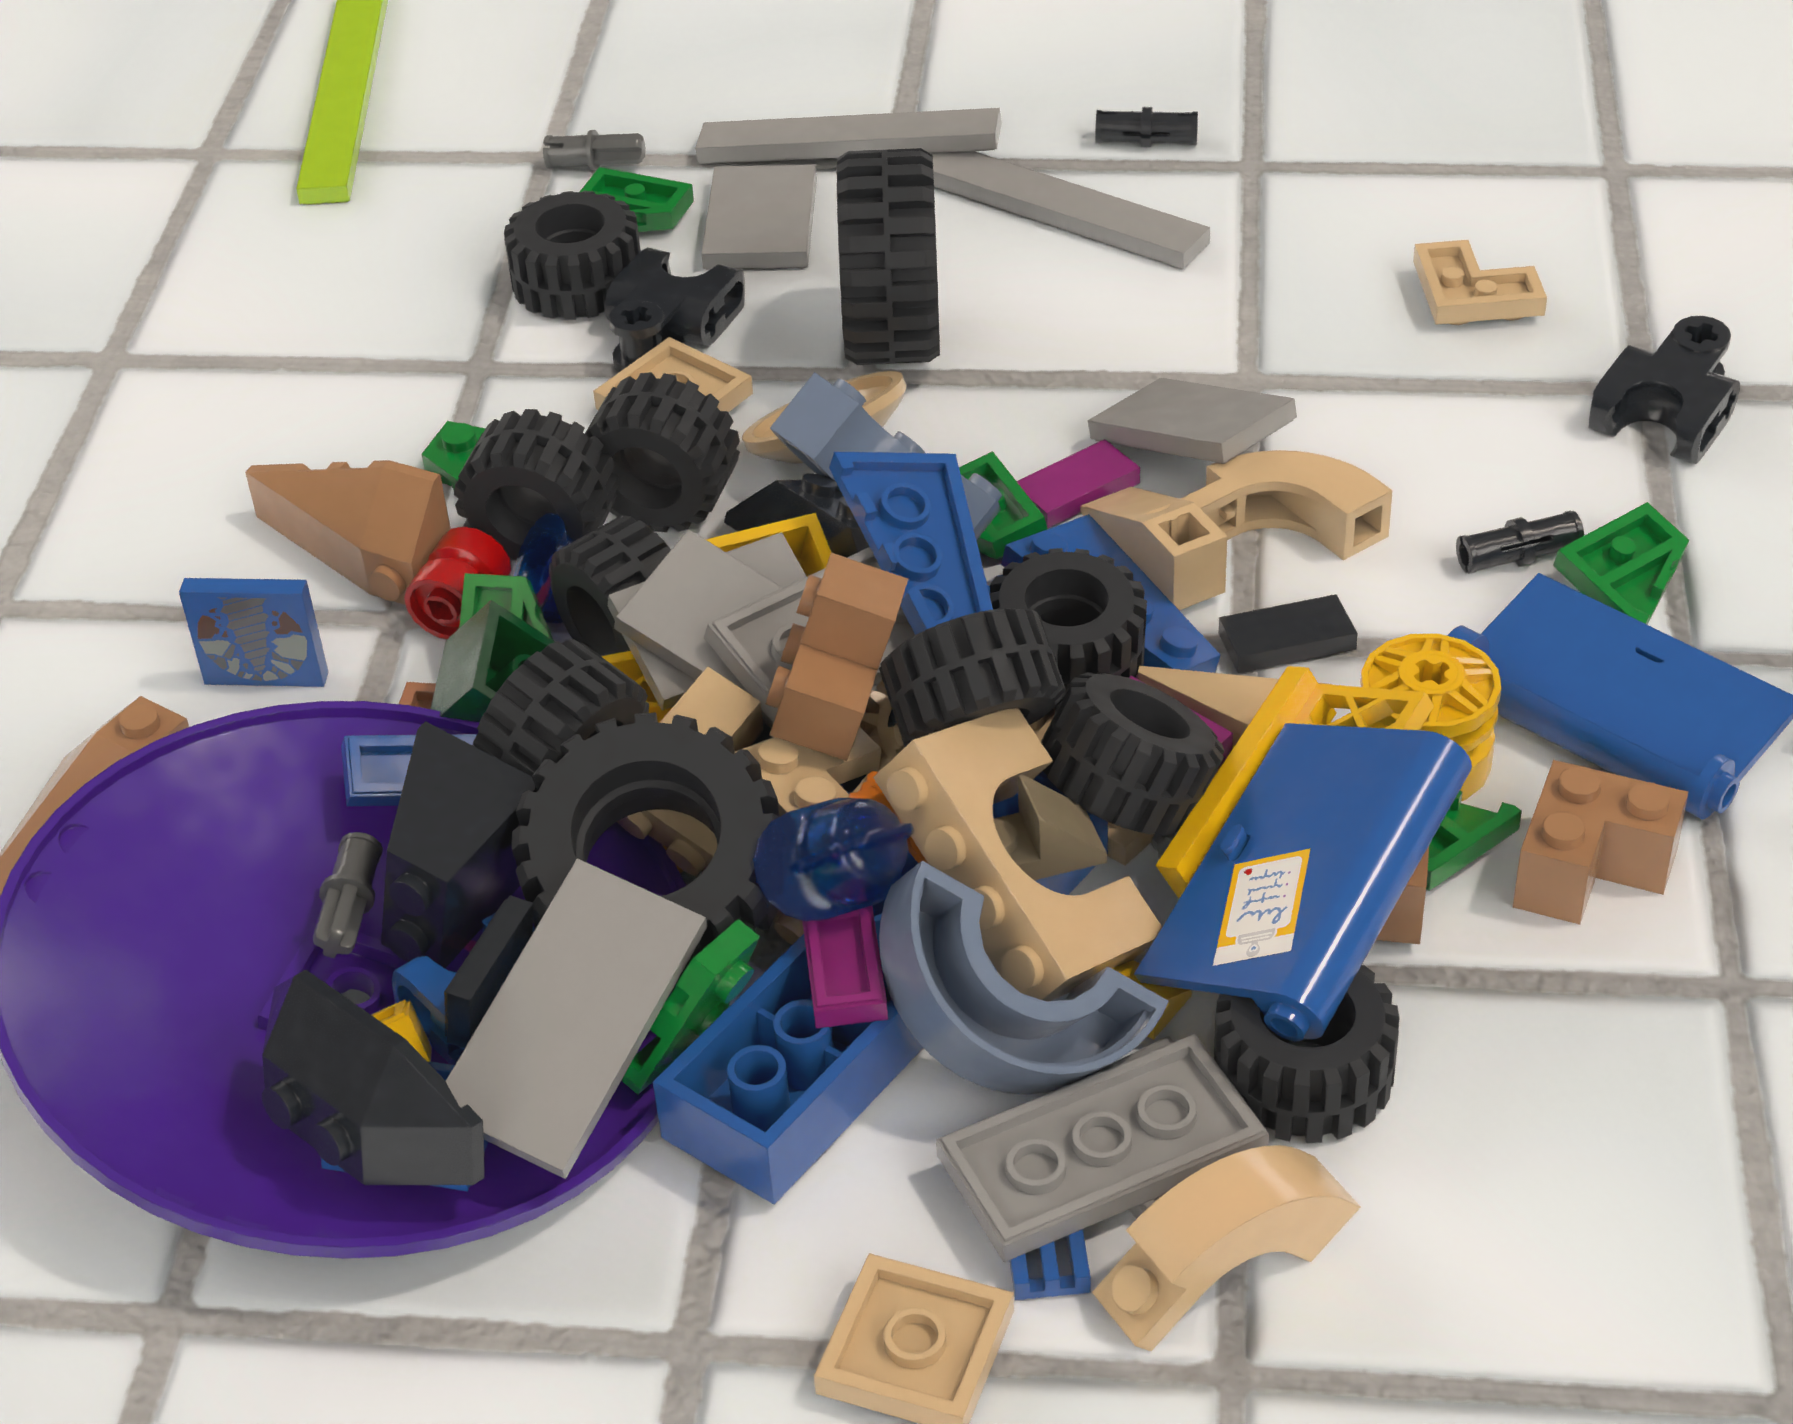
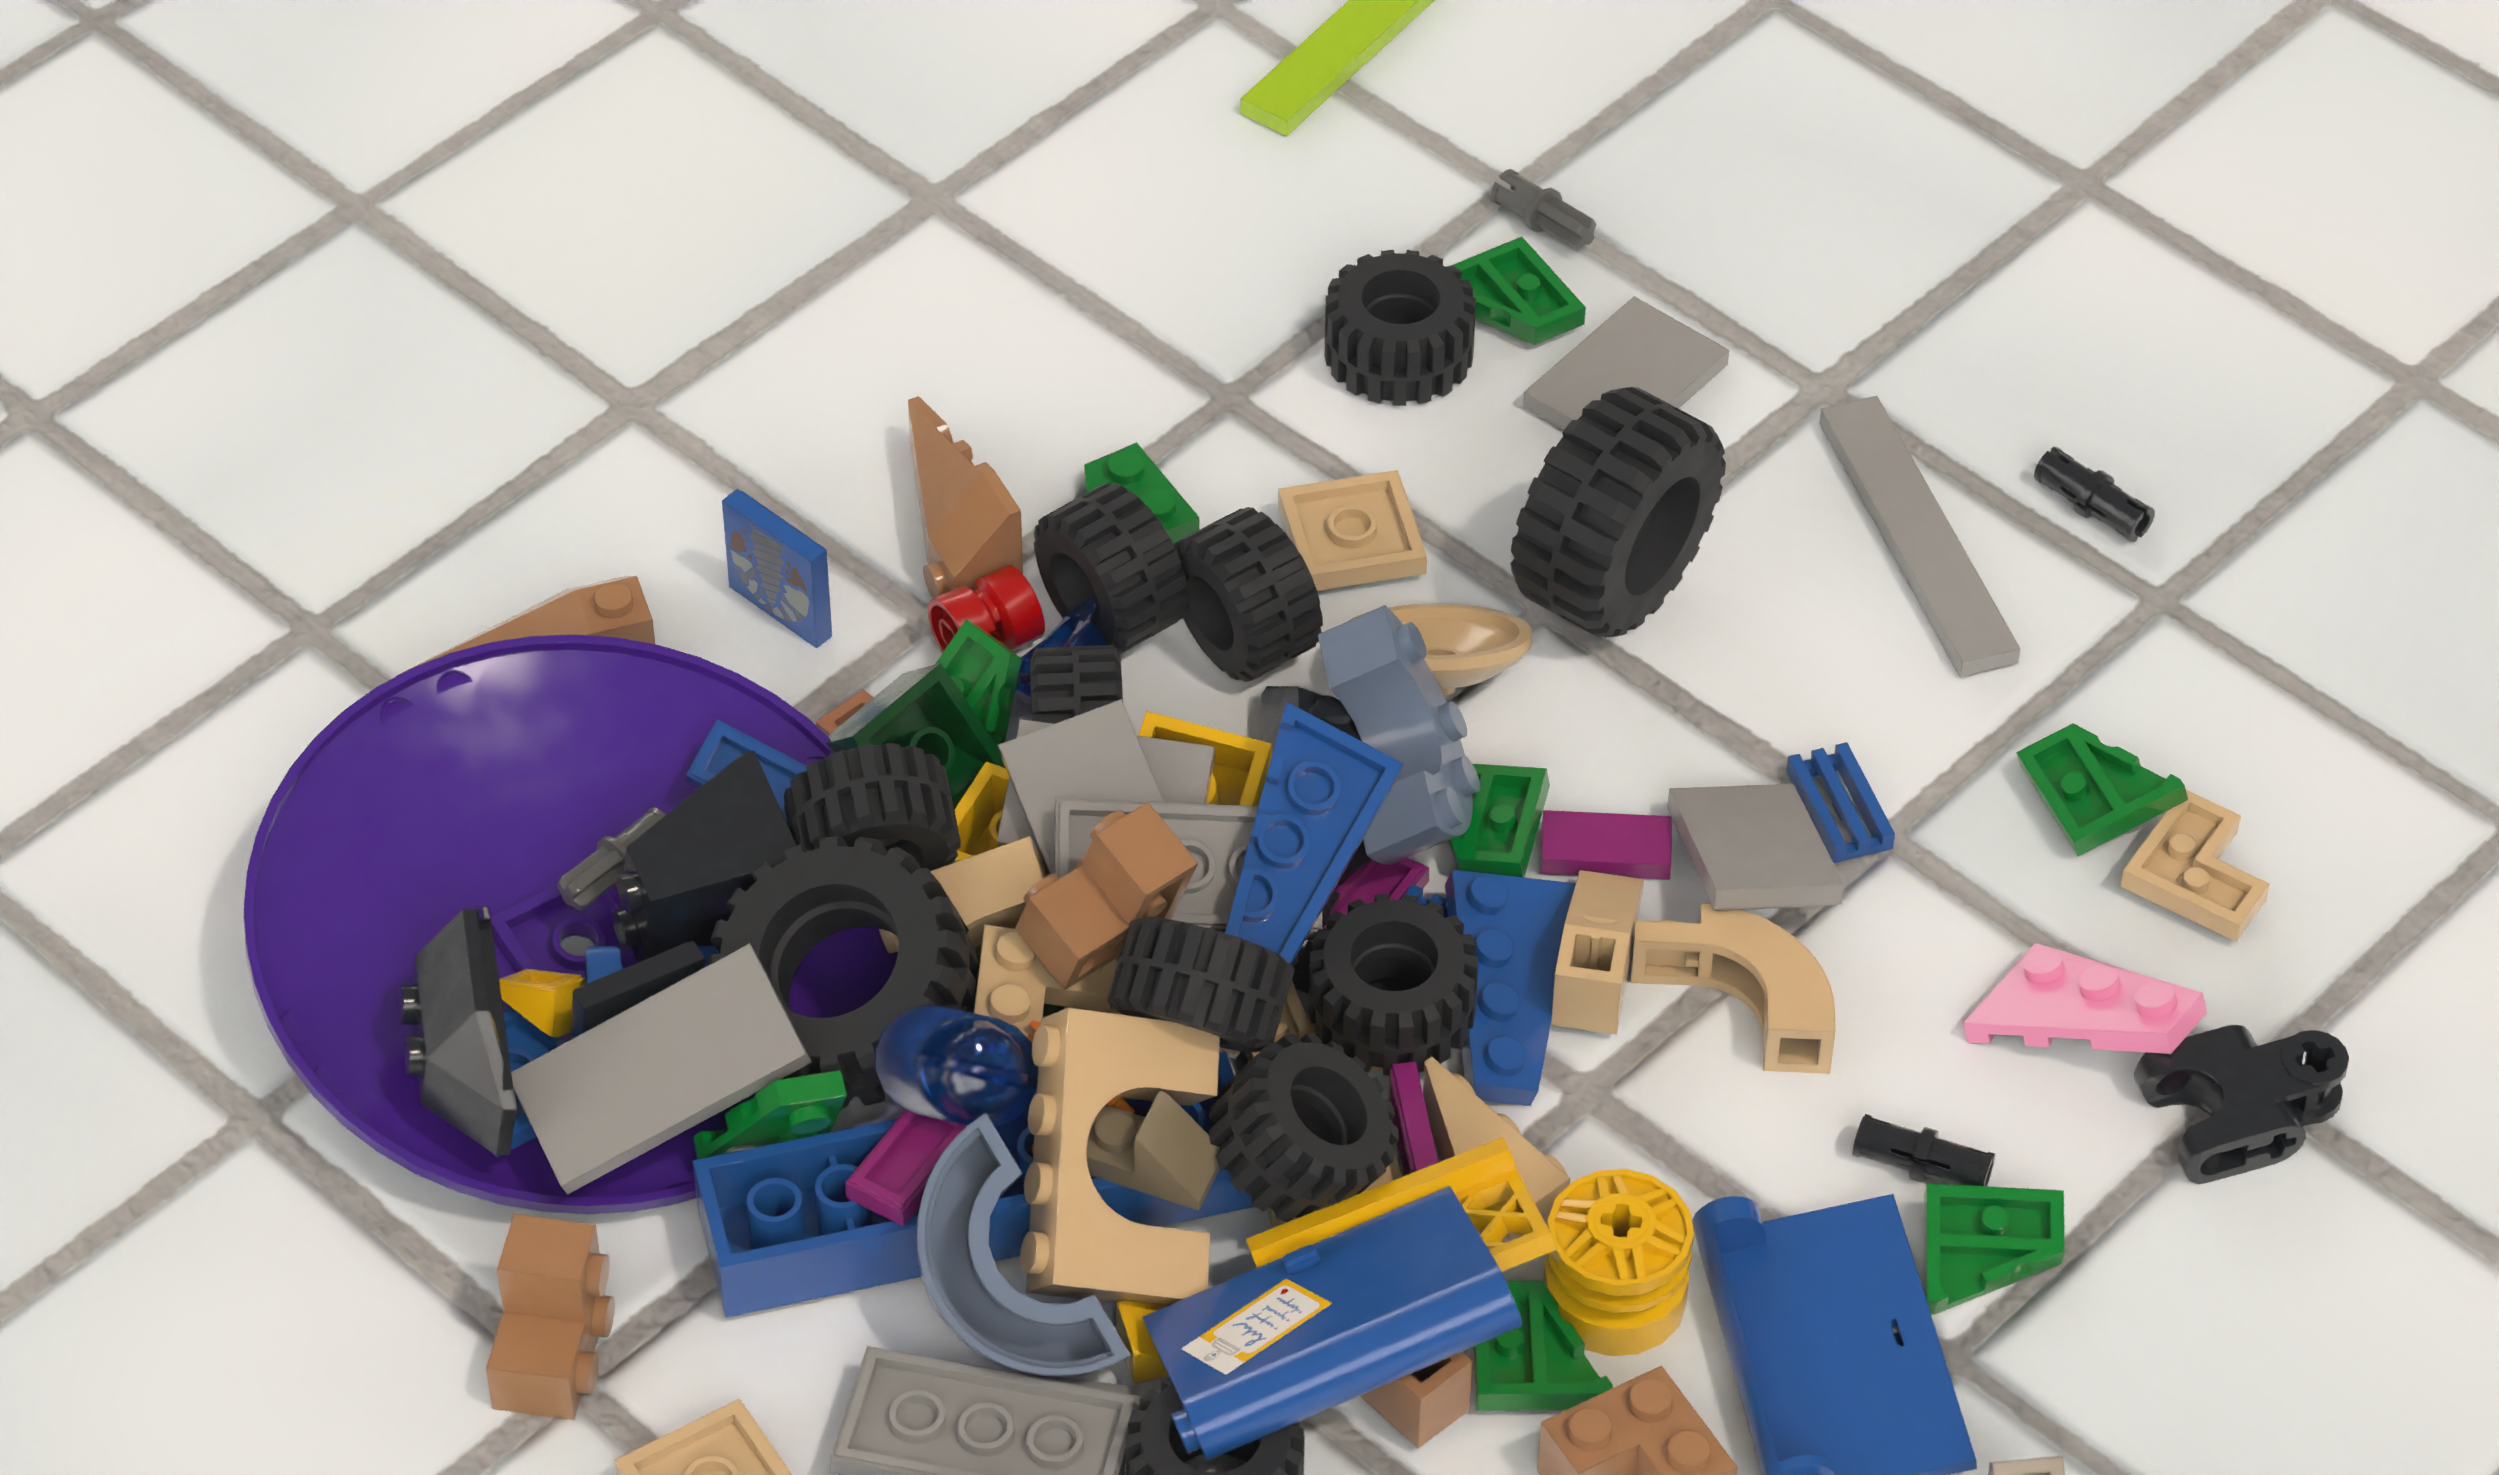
camera: 35 degrees right, 5 degrees up
(637, 1294) = (550, 1317): none -> medium nougat brick
(651, 305) = (1428, 436): black piece -> none
(835, 135) = (1793, 336): light grey tile -> none
(1198, 365) = (1845, 763): none -> blue tile
(1287, 633) = (1624, 1108): black tile -> none
(1356, 273) = (2095, 787): none -> green wing
(1502, 393) = (2081, 998): none -> bright pink wing

